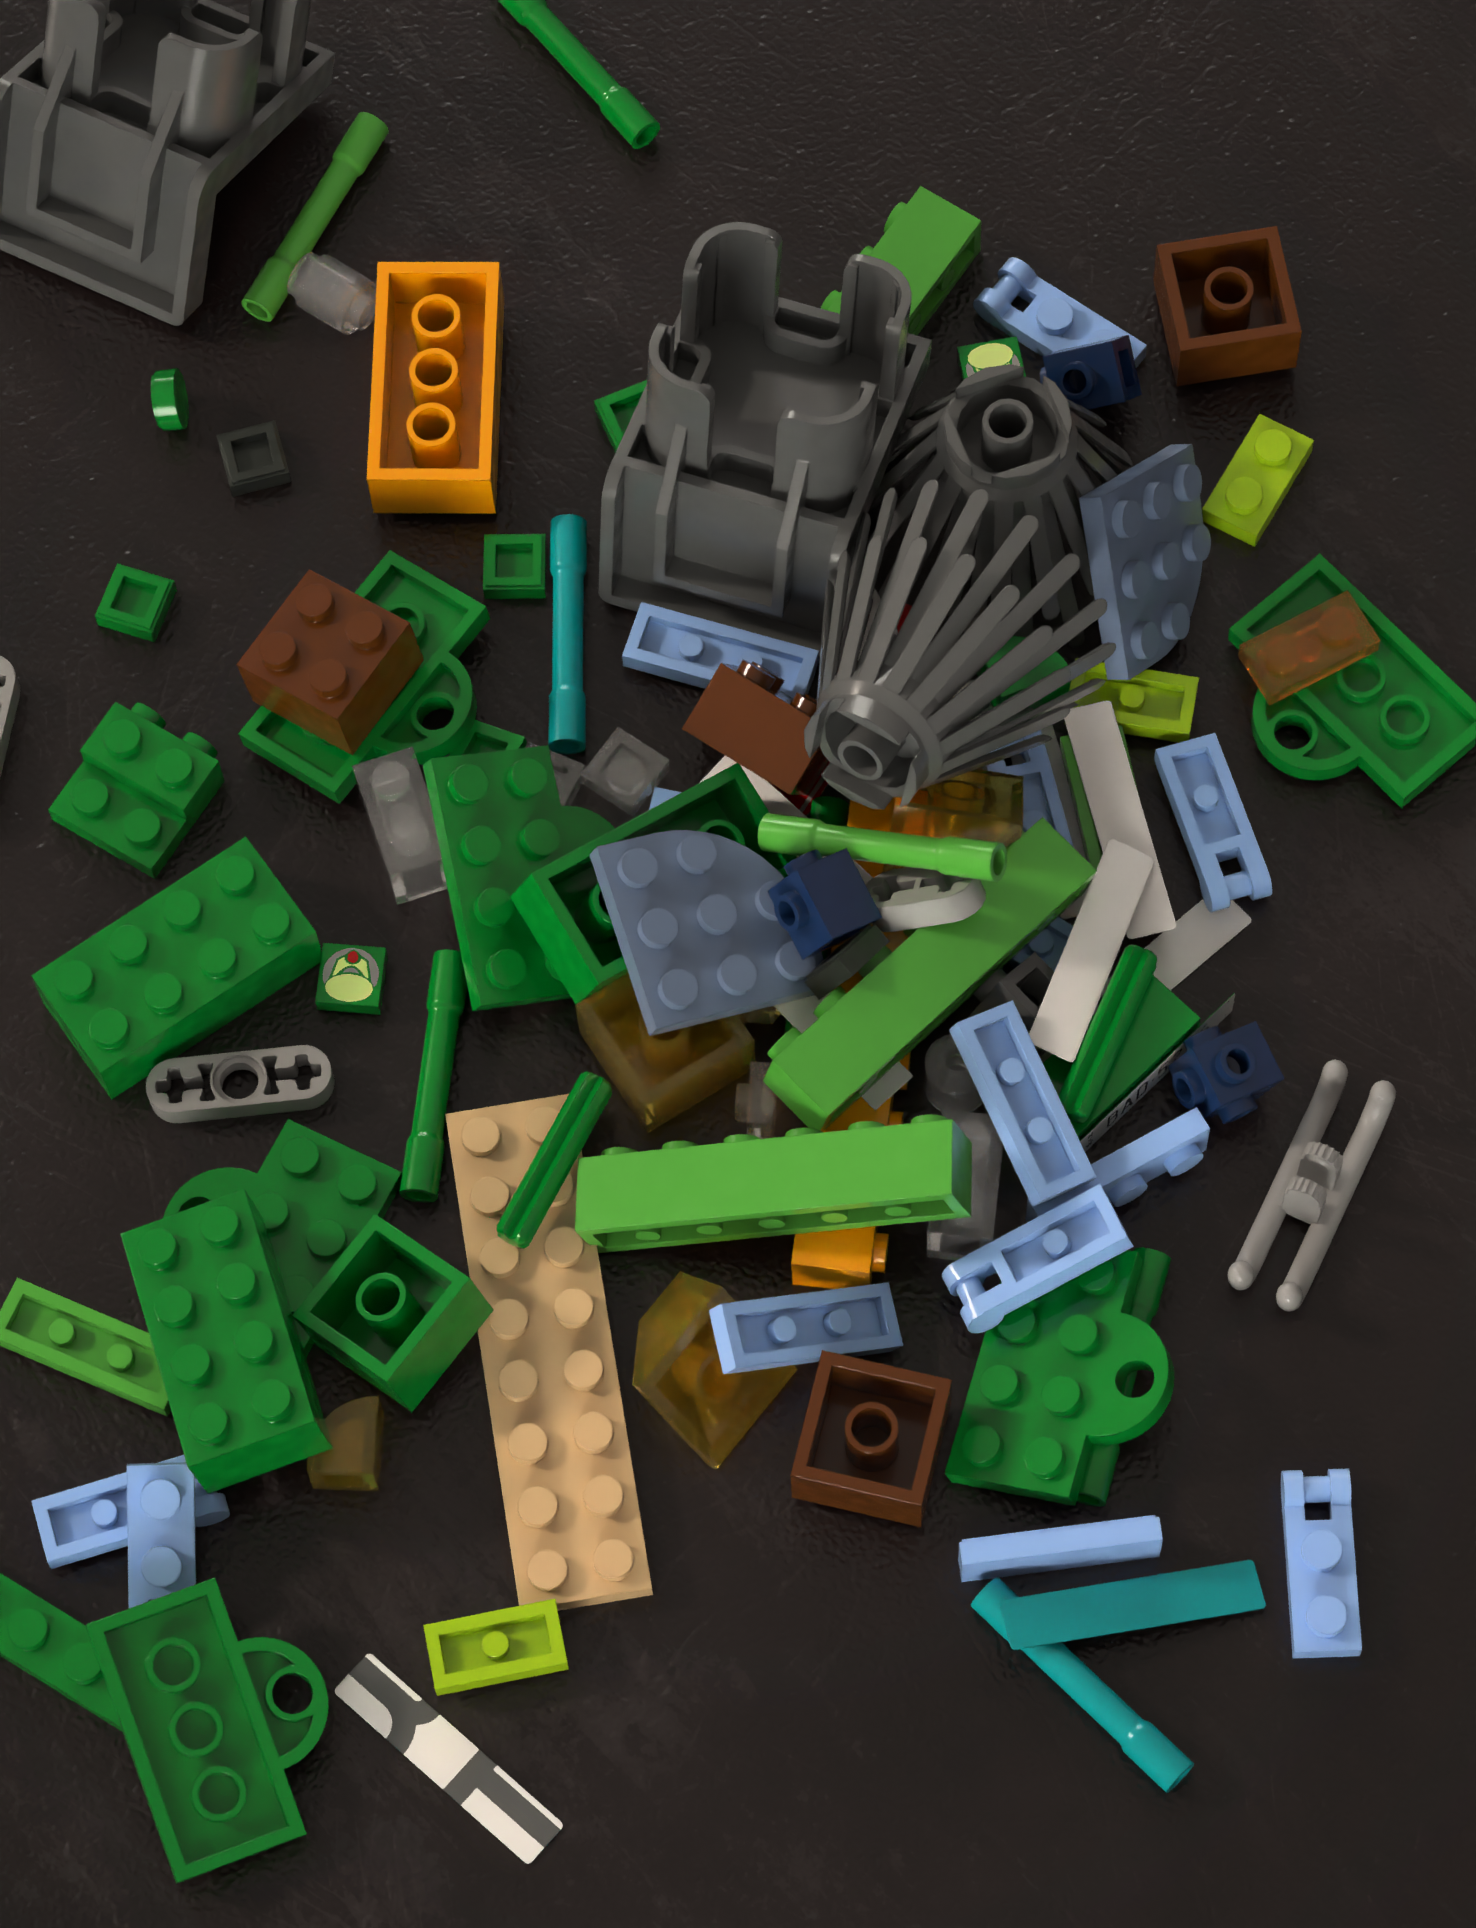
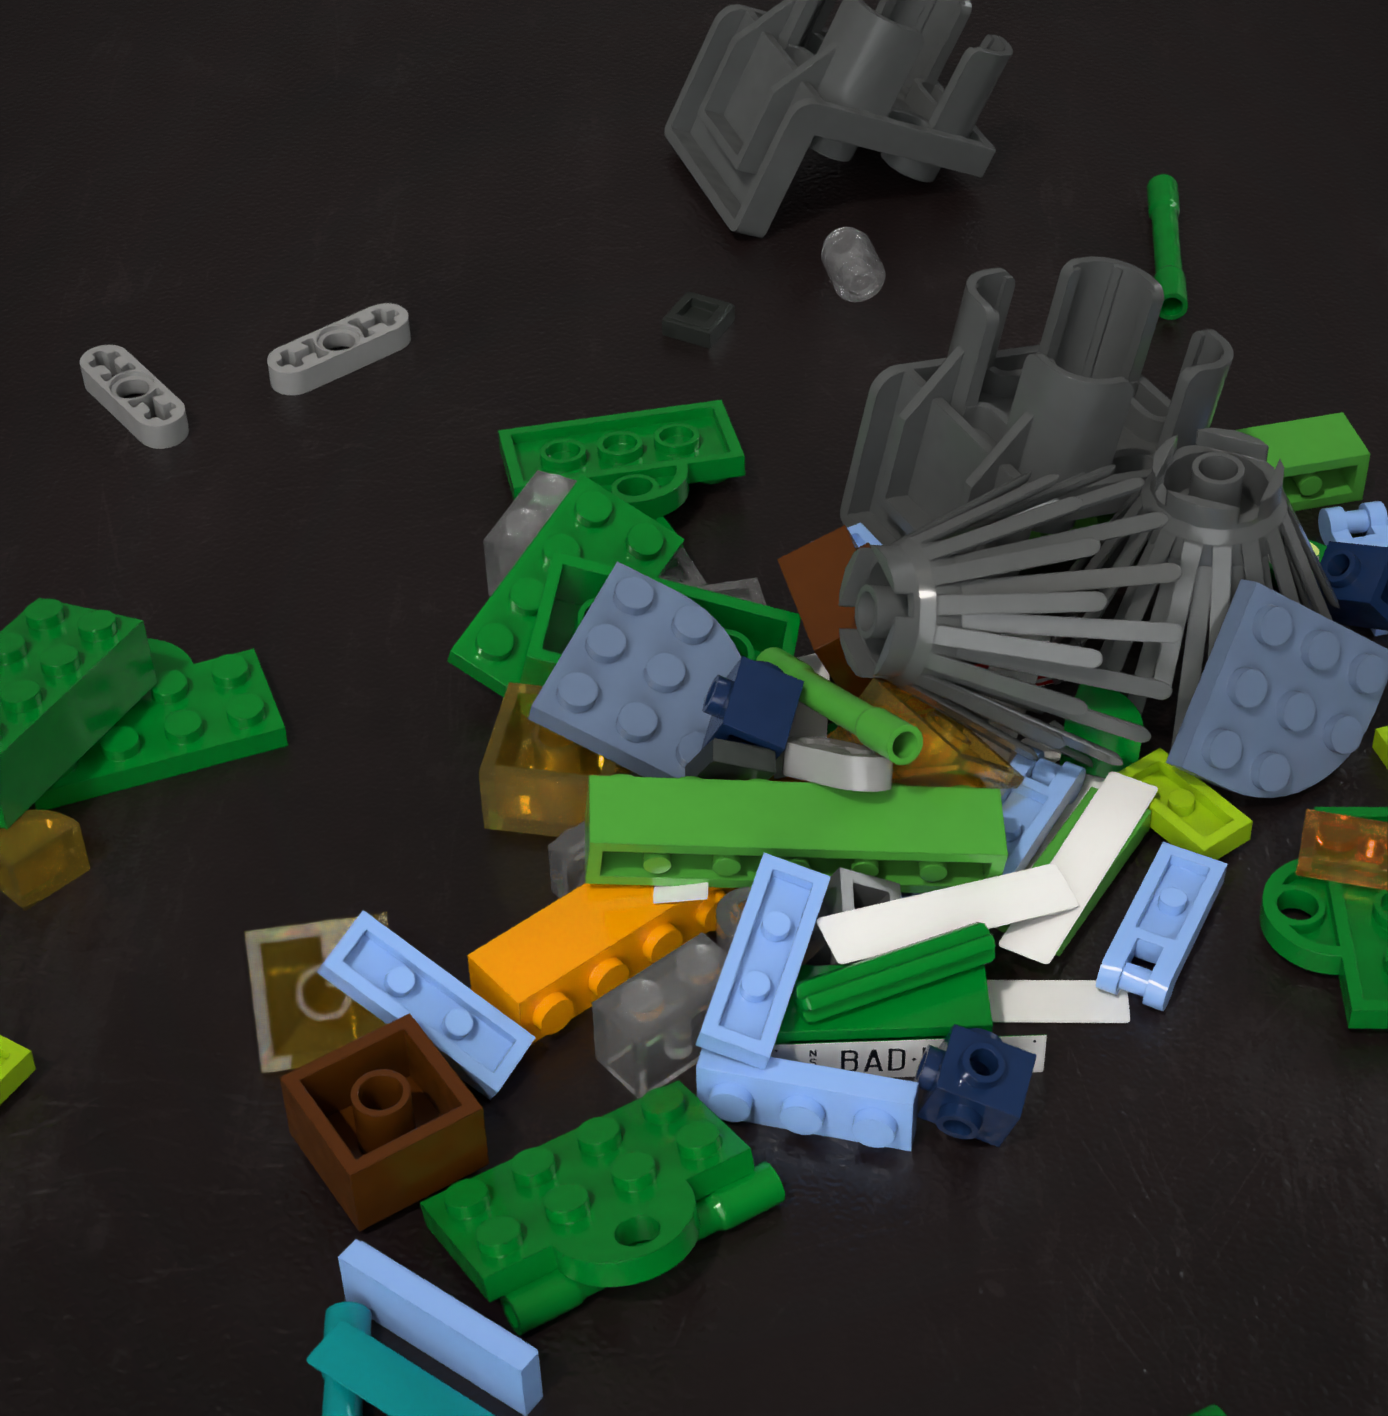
camera: 40 degrees right, 25 degrees down
(135, 602) = (529, 344): green tile -> none
(138, 787) = (405, 428): green plate -> none
(169, 399) = (679, 257): green tile -> none
(178, 967) = (293, 520): green brick -> none
(219, 1066) = (285, 634): light grey beam -> none
(330, 661) = (595, 409): reddish brown brick -> none
(347, 164) = (945, 217): bright green piece -> none
(351, 978) = (401, 607): tile -> none
(393, 1312) = (156, 786): green brick -> none
(425, 1144) = (326, 725): green piece -> none
(436, 387) = (839, 335): light orange brick -> none
(514, 566) = (801, 467): green tile -> none
(548, 1373) = (188, 953): tan plate -> none
(554, 1160) = (385, 776): green axle -> none
(567, 696) = (746, 550): teal piece -> none
(775, 1185) = (517, 887): bright green brick -> none
(1036, 1258) = (659, 1086): light blue plate -> none
(1313, 1186) = (964, 1234): light grey piece -> none

